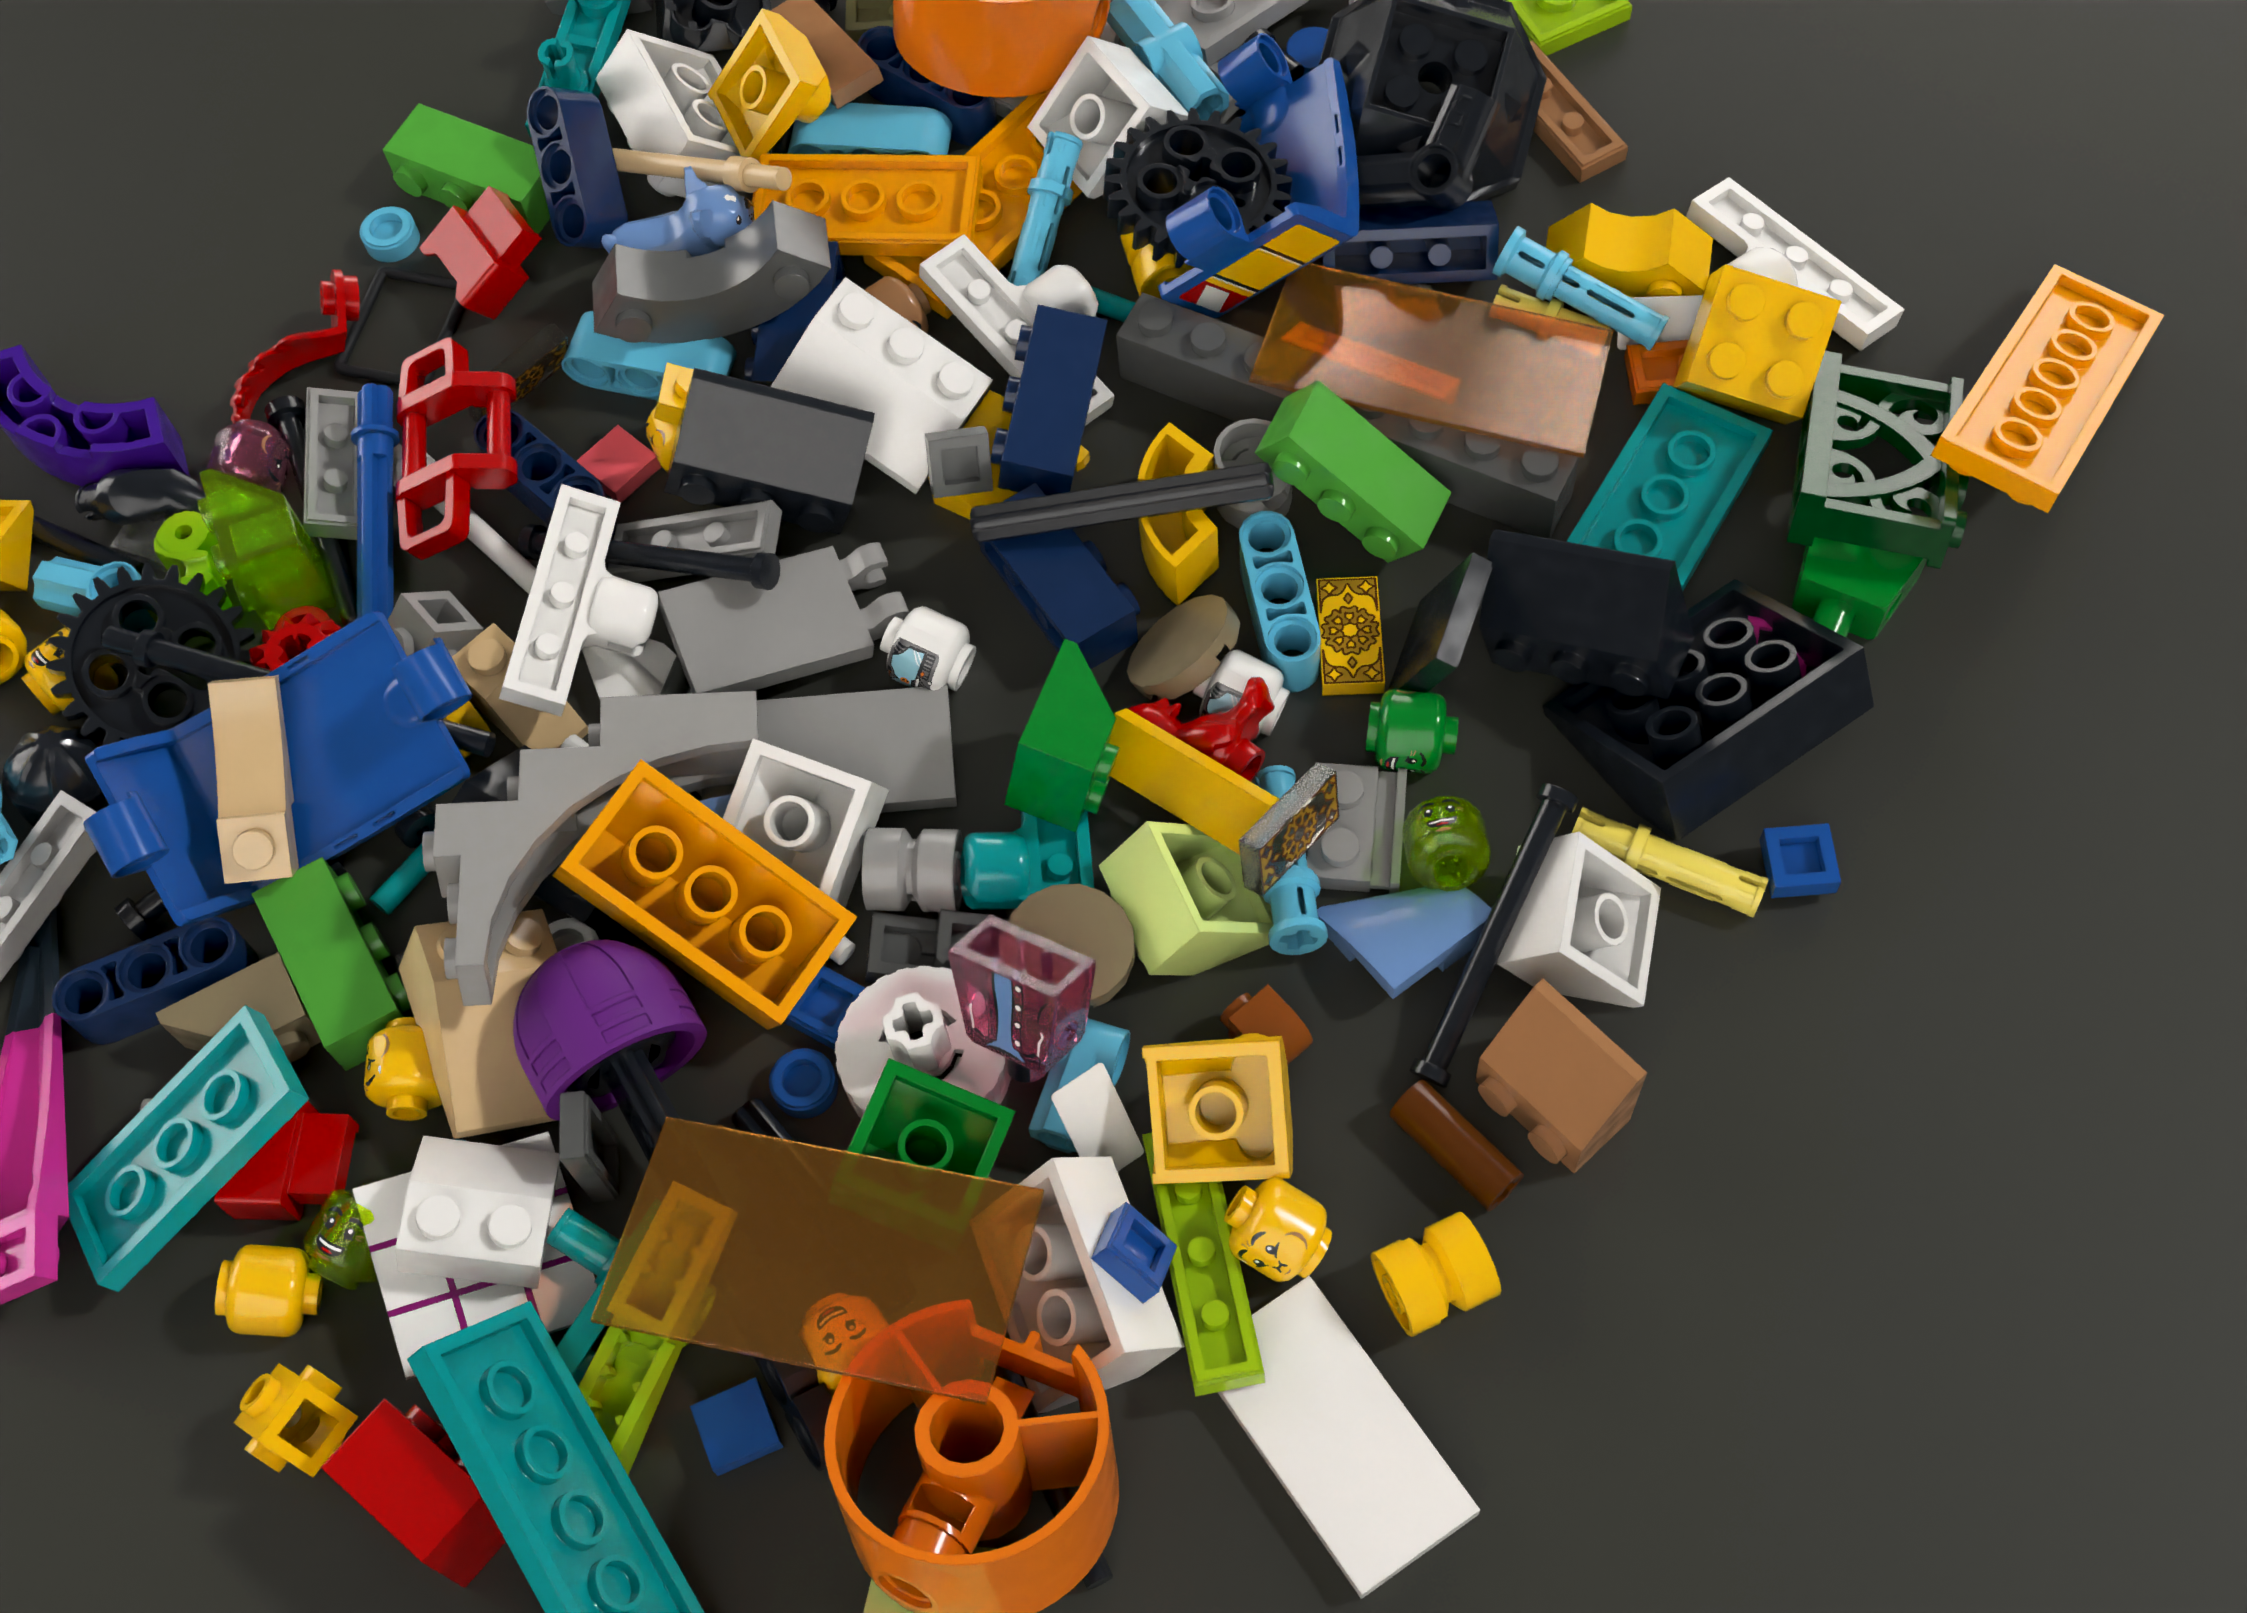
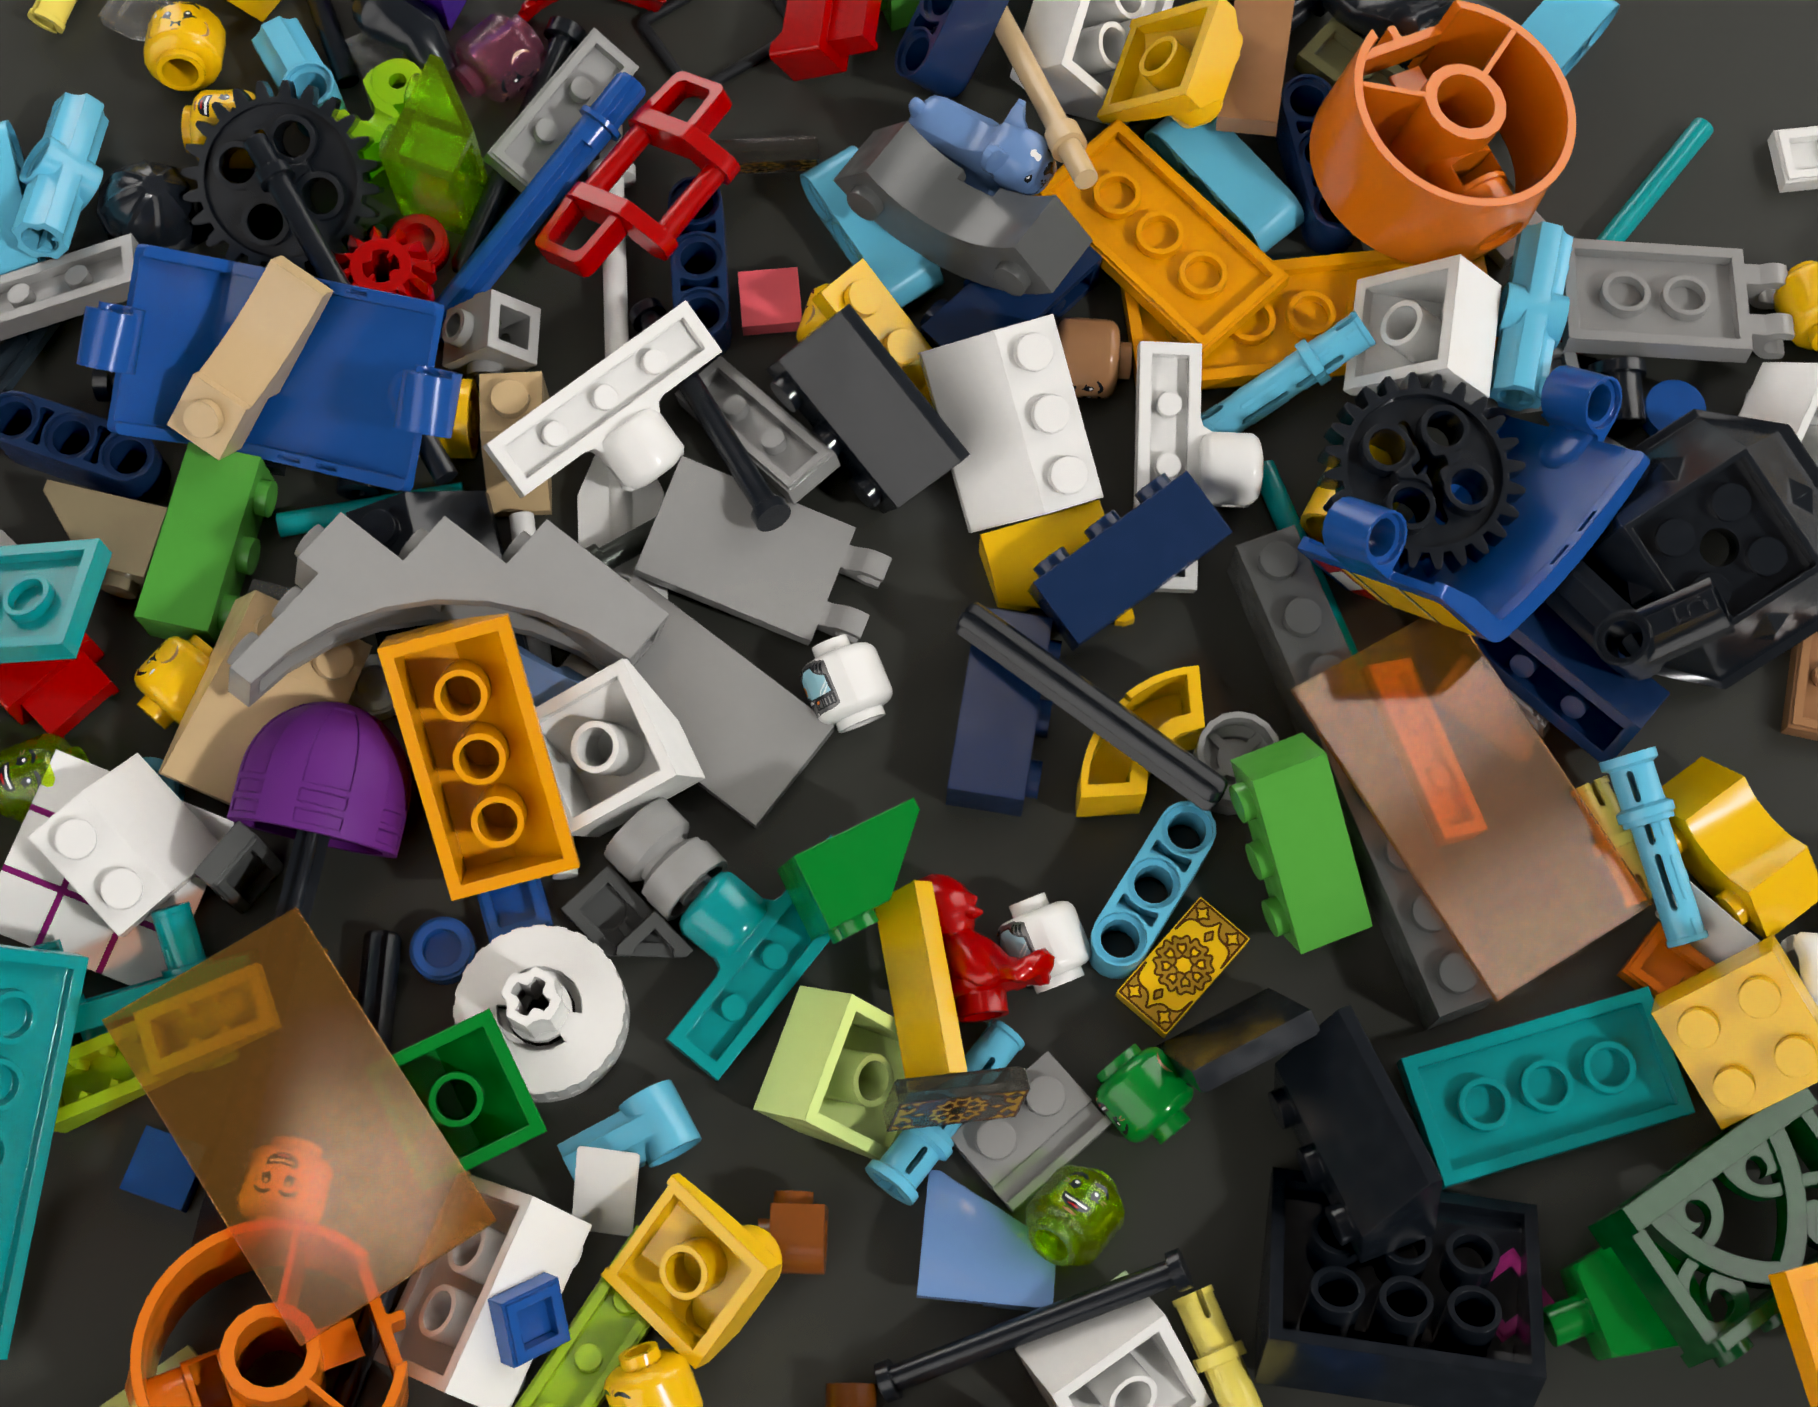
camera: 35 degrees right, 10 degrees up
(959, 461) = (1007, 548): dark grey plate -> none
(1021, 995) = (628, 1061): clear pink torso -> none
(1085, 923) = (711, 1034): dark tan tile -> none
(1183, 647) = (1034, 864): dark tan tile -> none

